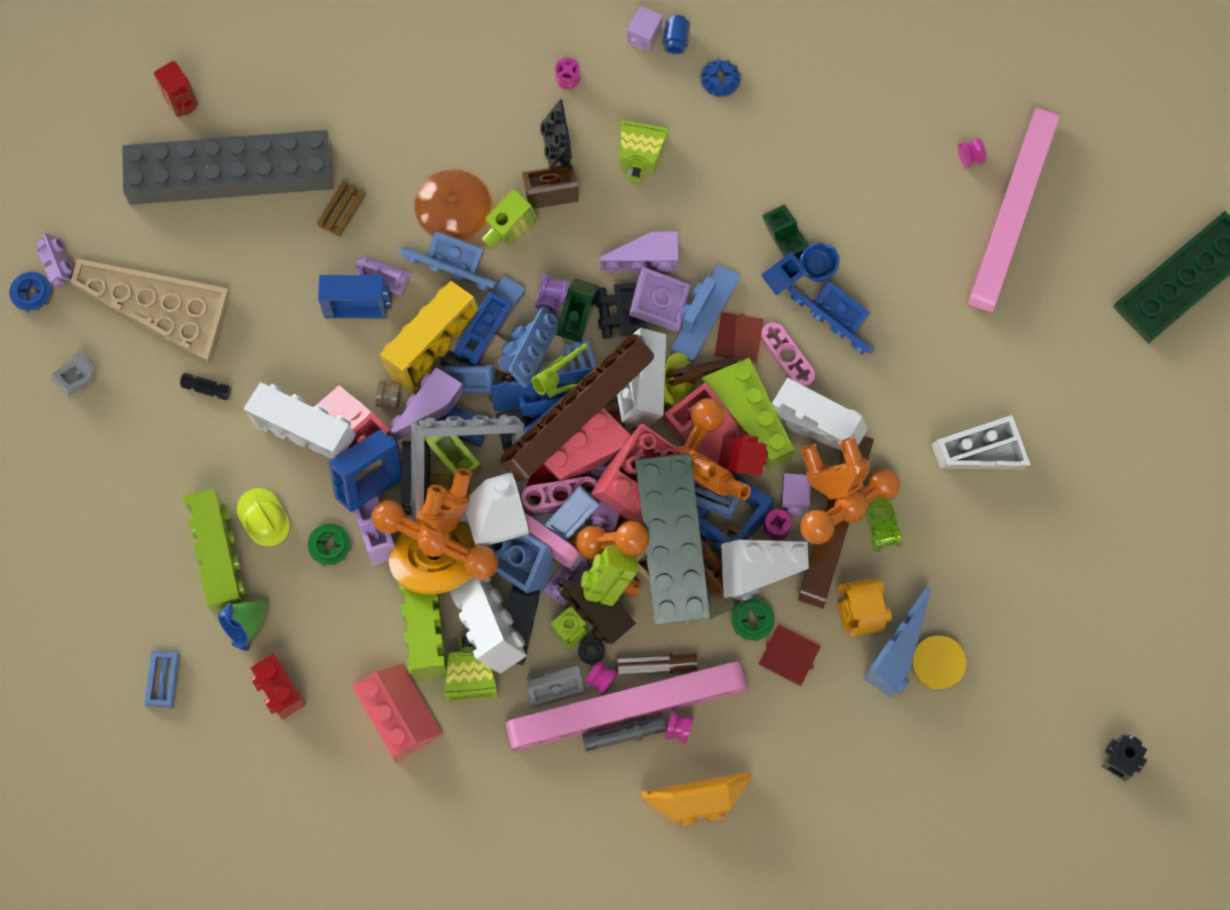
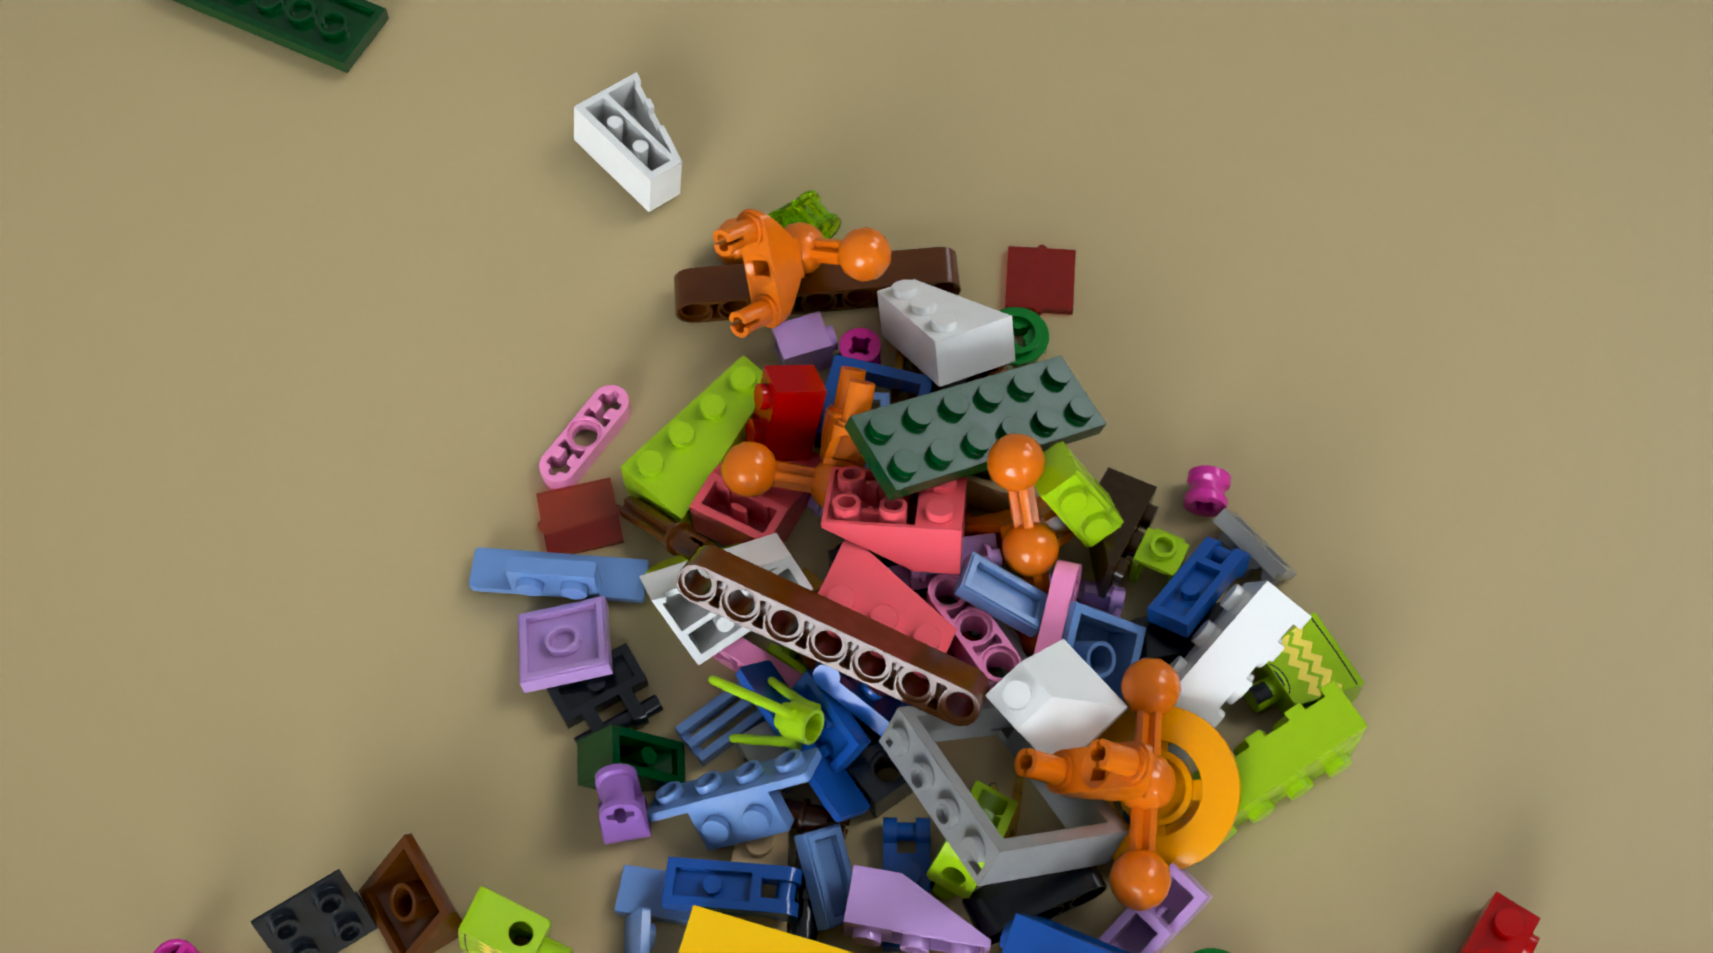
camera: 110 degrees left, 10 degrees down
(397, 711) = (1418, 754): coral slope -> none
(539, 633) = (1197, 587): none -> blue plate
(591, 643) = (1175, 514): black plate -> none
(623, 733) = (1233, 399): dark grey pin -> none
(626, 706) = (1233, 445): bright pink beam -> none
(641, 148) = (295, 783): lime torso -> none
(644, 29) = (51, 868): lavender brick -> none
(652, 251) = (483, 694): lavender slope -> none
(656, 663) = (1135, 415): axle -> none
(676, 34) = (49, 811): blue brick -> none
(679, 727) = (1221, 366): dark pink wheel -> none
(697, 799) = (1301, 304): light orange wedge -> none
(712, 83) = (133, 718): blue gear -> none
(784, 273) = (453, 478): blue brick -> none
(785, 231) = (380, 512): dark green slope -> none
(817, 416) = (679, 336): white wedge -> none
(820, 262) = (413, 439): blue hair -> none
(839, 310) = (484, 391): blue bracket -> none
(863, 607) = (935, 199): light orange brick -> none
(896, 658) = (973, 148): medium blue wedge -> none
(939, 662) = (959, 107): yellow tile -> none
(972, 152) = (151, 306): dark pink wheel -> none
(1013, 210) = (230, 226): bright pink beam -> none

